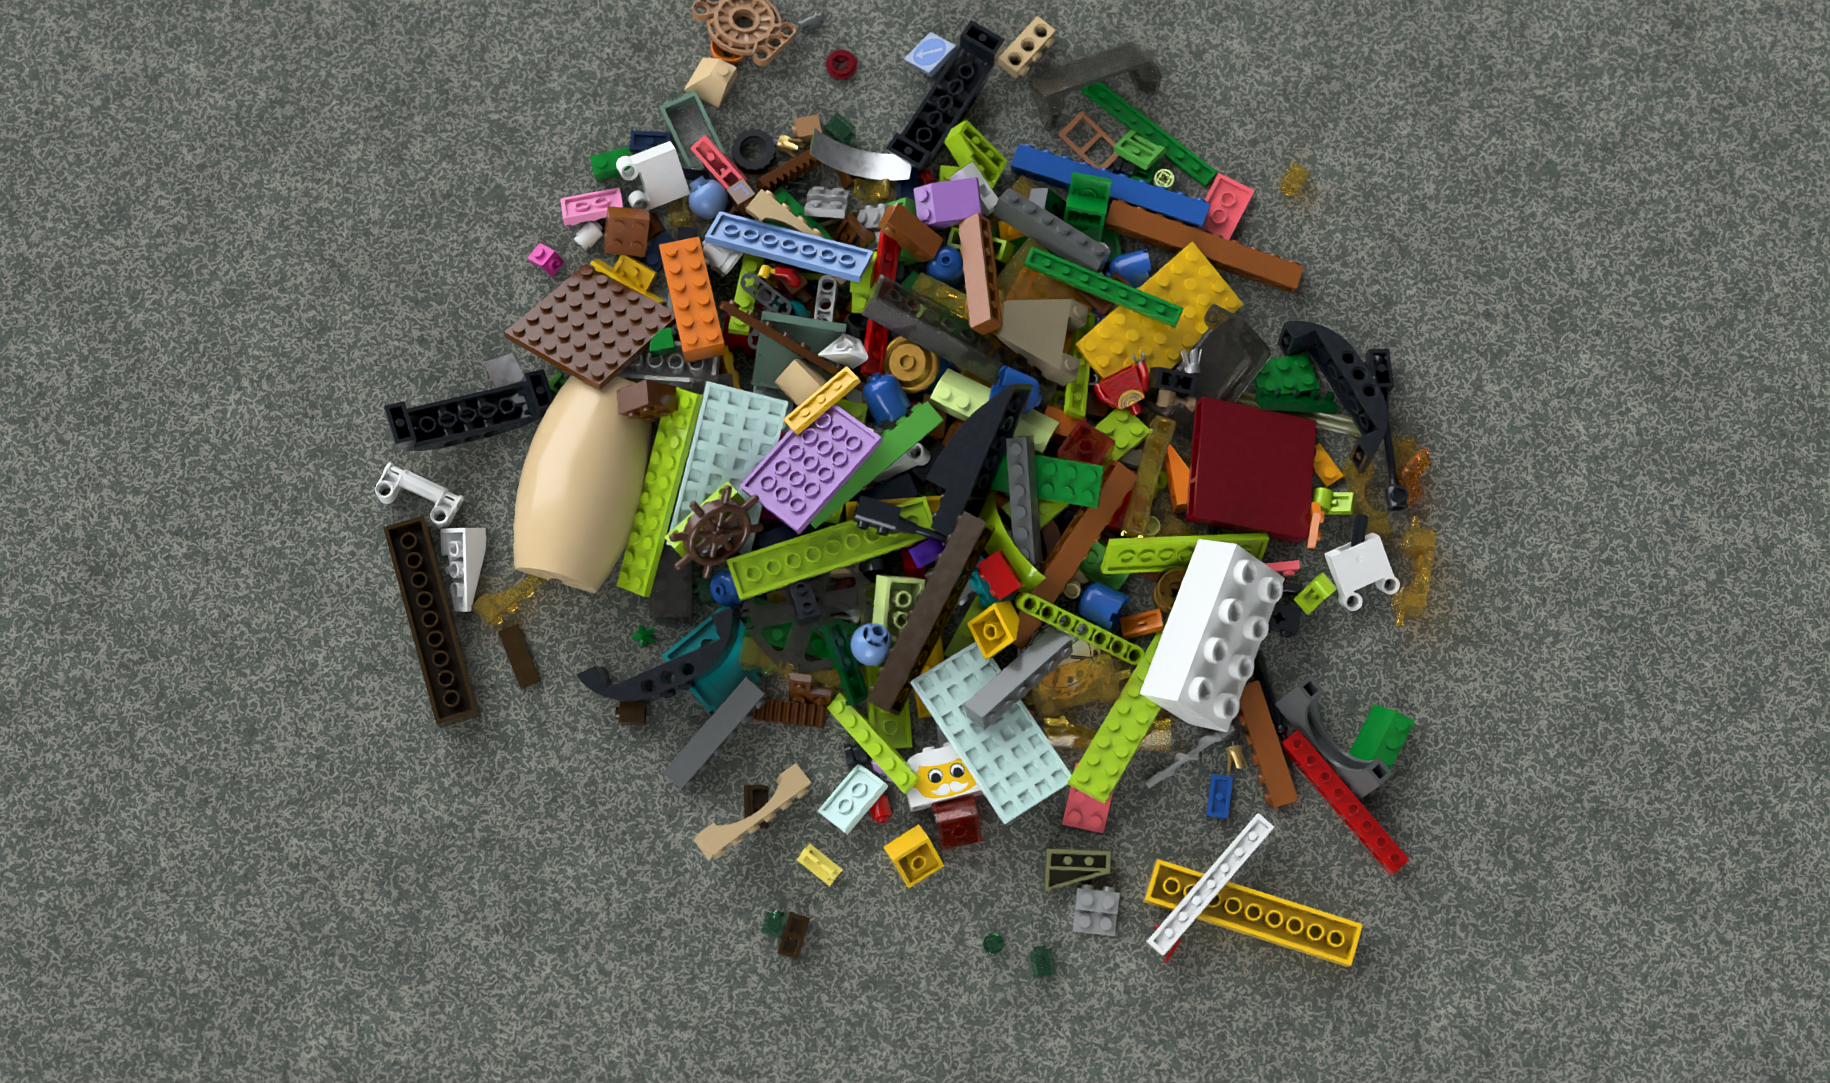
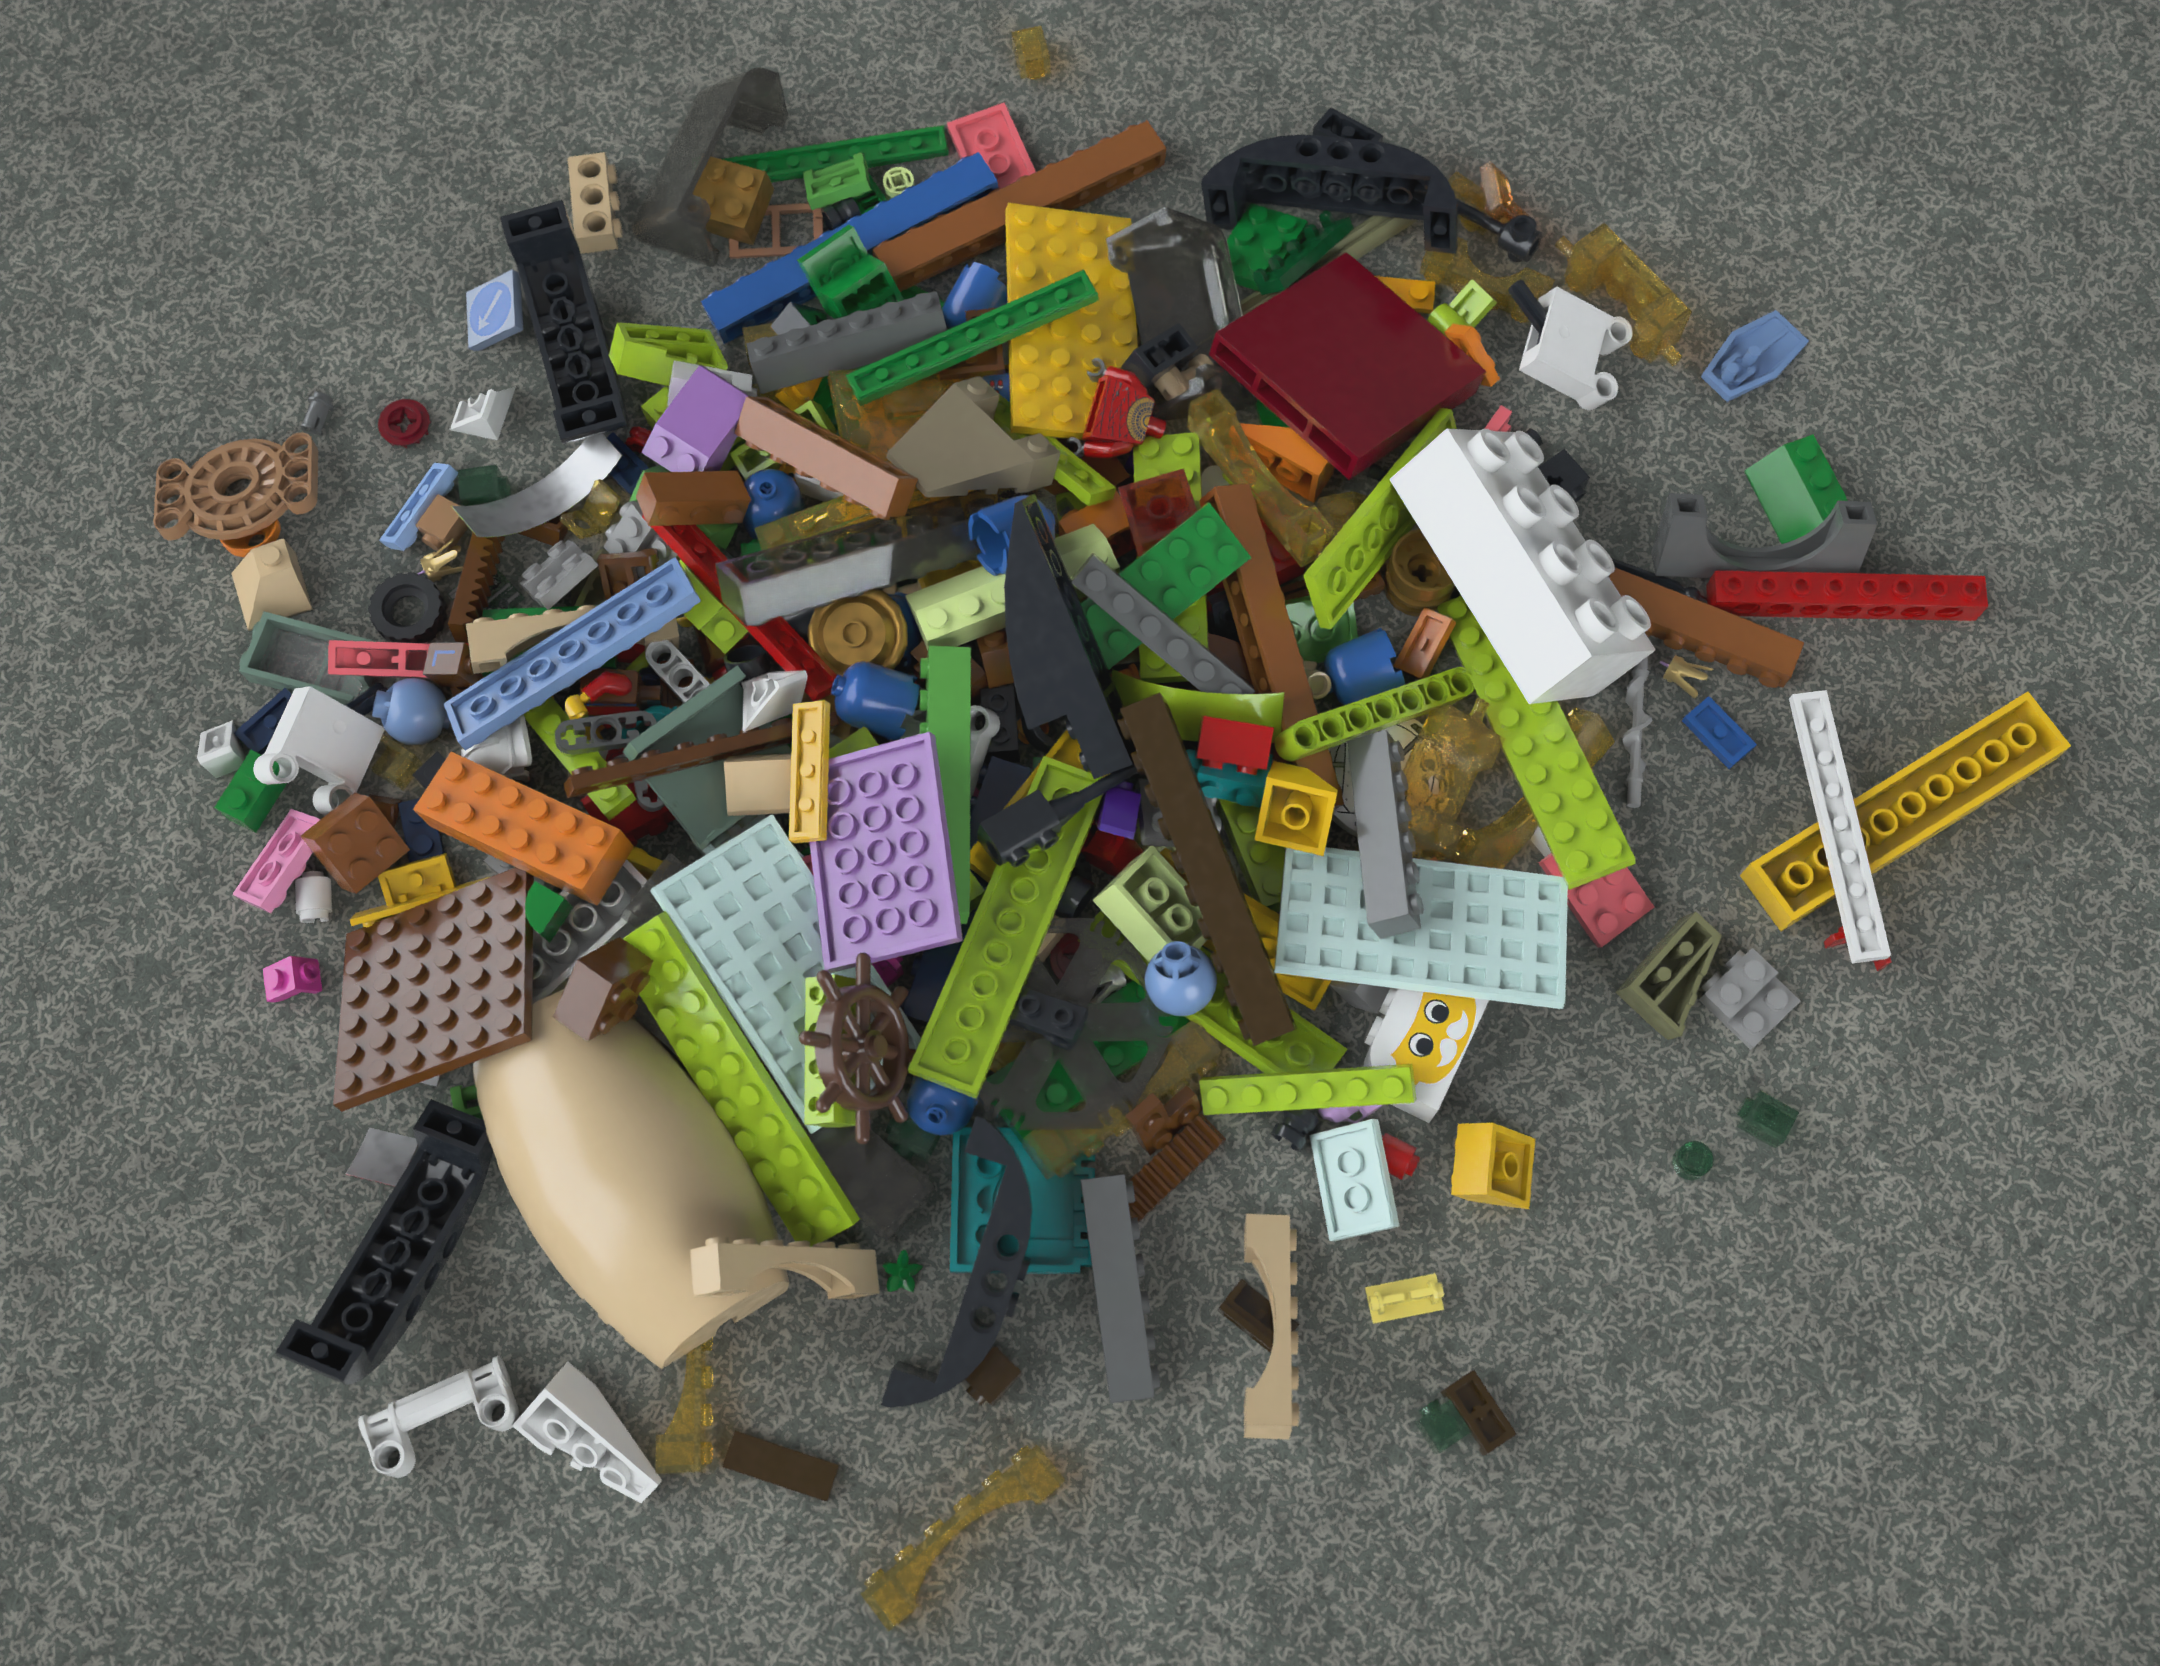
camera: 45 degrees left, 5 degrees down
(431, 622) = (628, 1548): dark brown brick -> none
(508, 749) = (895, 1593): none -> clear yellow arch
(573, 559) = (728, 1268): none -> tan arch
(619, 131) = (220, 750): none -> white slope
(822, 107) = (403, 528): none -> light blue plate
(844, 662) = (1171, 1035): dark green hinge -> none
(877, 96) = (483, 416): none -> white slope
(957, 822) = (1498, 1071): clear red brick -> none
(1084, 111) = (735, 197): none -> pearl gold brick
(1193, 366) = (1148, 324): flat silver piece -> none
(1315, 593) = (1553, 417): lime plate -> none
(1441, 661) = (1753, 356): none -> medium blue piece

